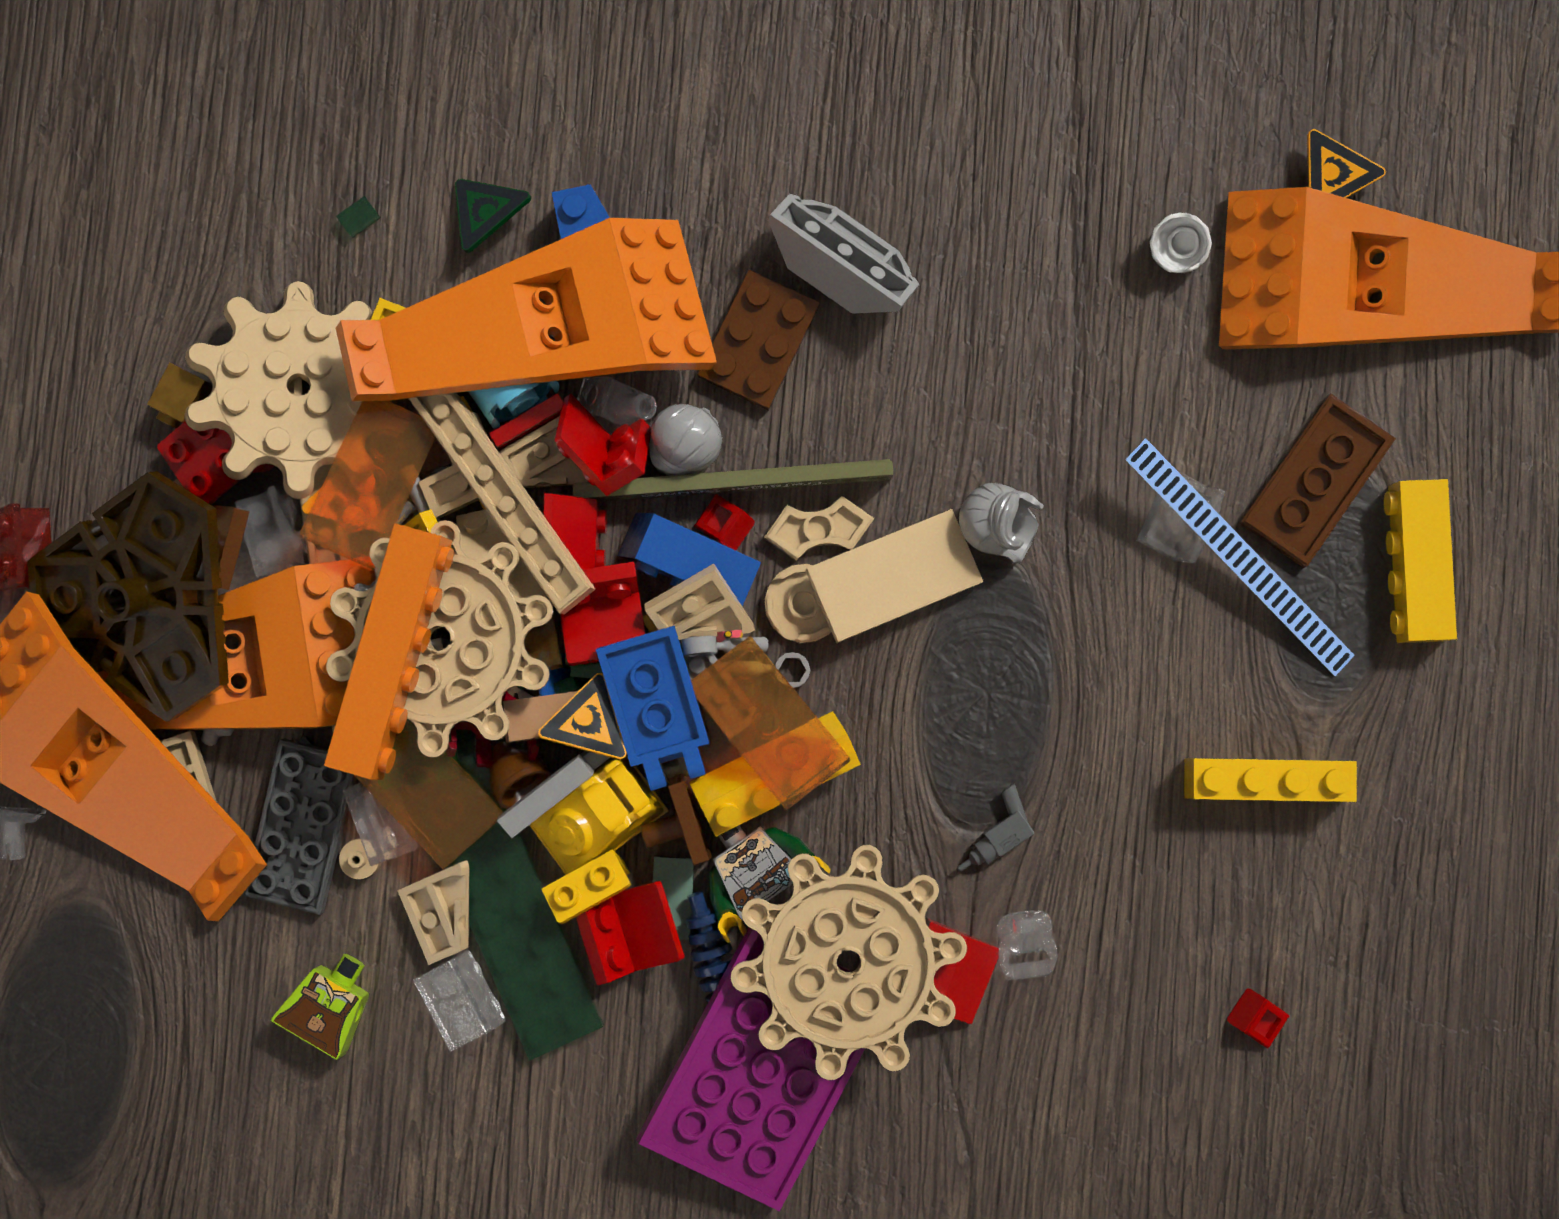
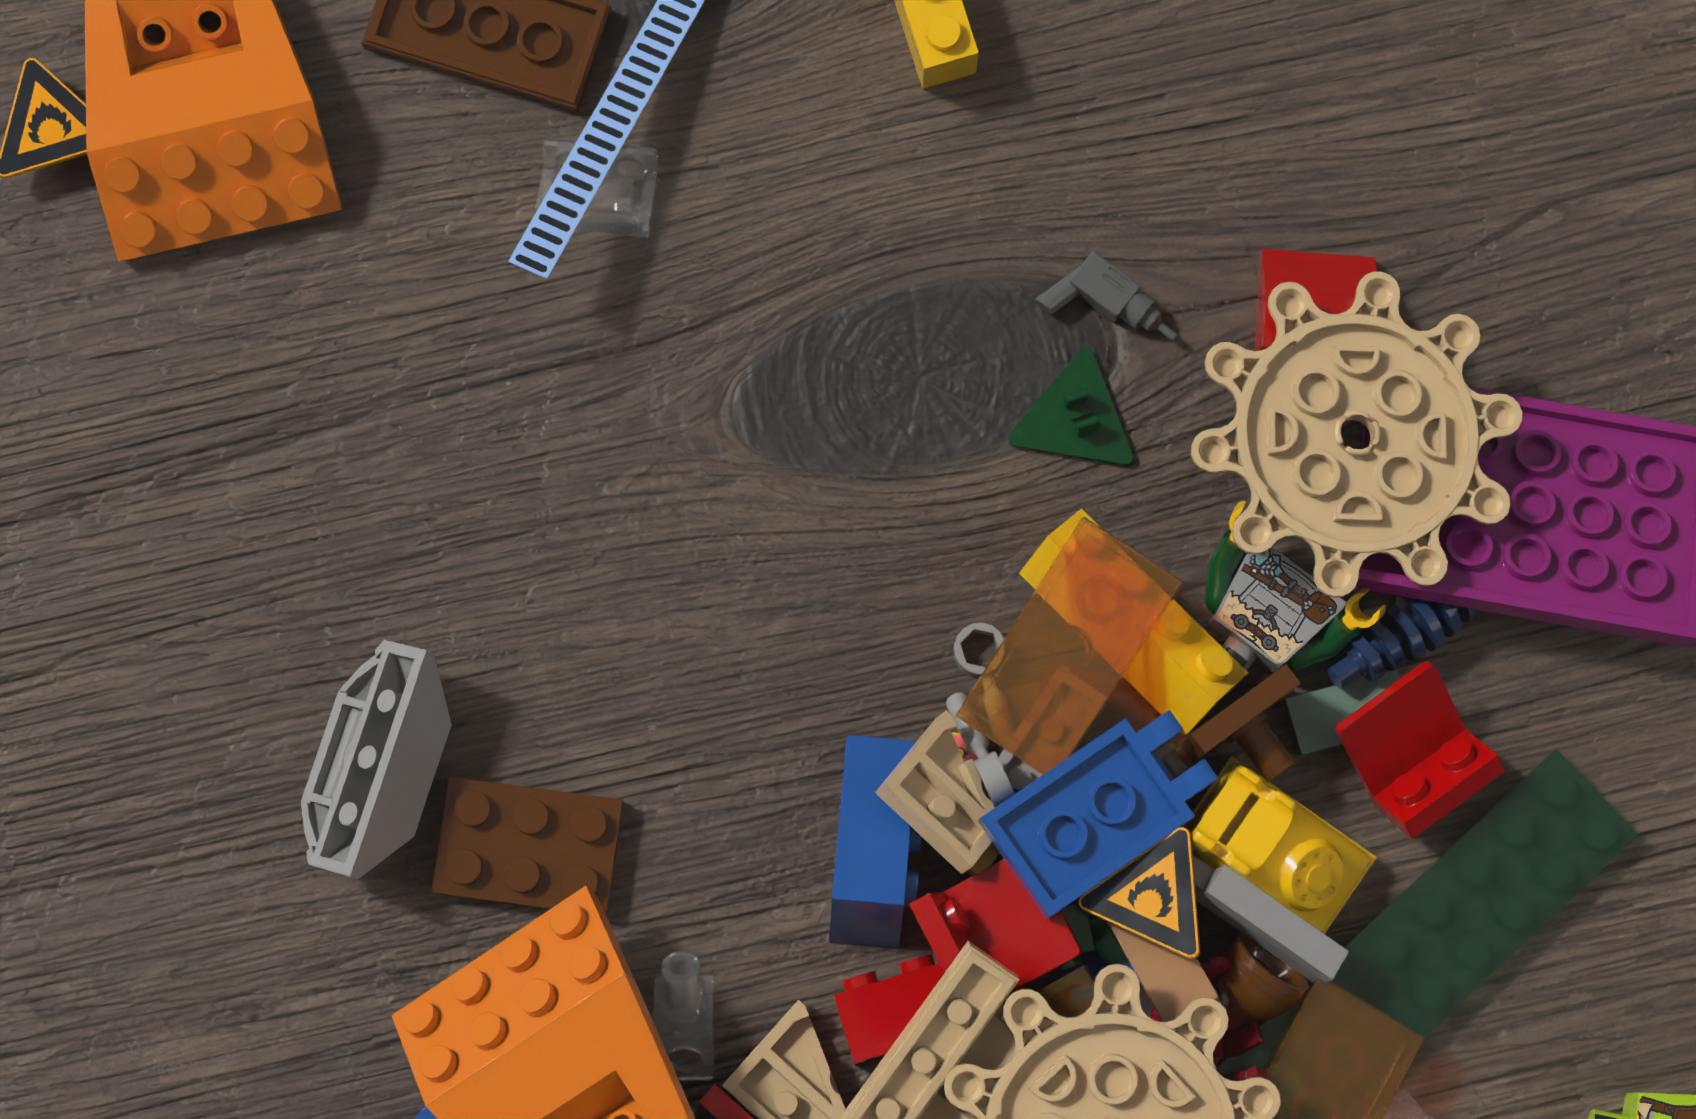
camera: 110 degrees left, 5 degrees down
(440, 911) = (1481, 1027): tan wing -> none
(460, 1000) = (1592, 958): clear bracket -> none
(587, 886) = (1378, 827): yellow bracket -> none
(603, 458) = (771, 997): red bracket -> none
(684, 440) = (708, 899): light grey hair -> none
(725, 523) = (804, 810): red slope -> none
(743, 480) = (743, 815): olive tile -> none
(794, 606) = (881, 663): tan tile -> none
(800, 531) = (783, 702): tan tile -> none
(894, 575) = (805, 548): tan tile -> none
(927, 785) = (1075, 417): none -> dark green piece
(999, 520) = (681, 429): light grey hair -> none
(1023, 934) = (1231, 223): clear piece -> none
(1180, 243) = (213, 302): white hair -> none

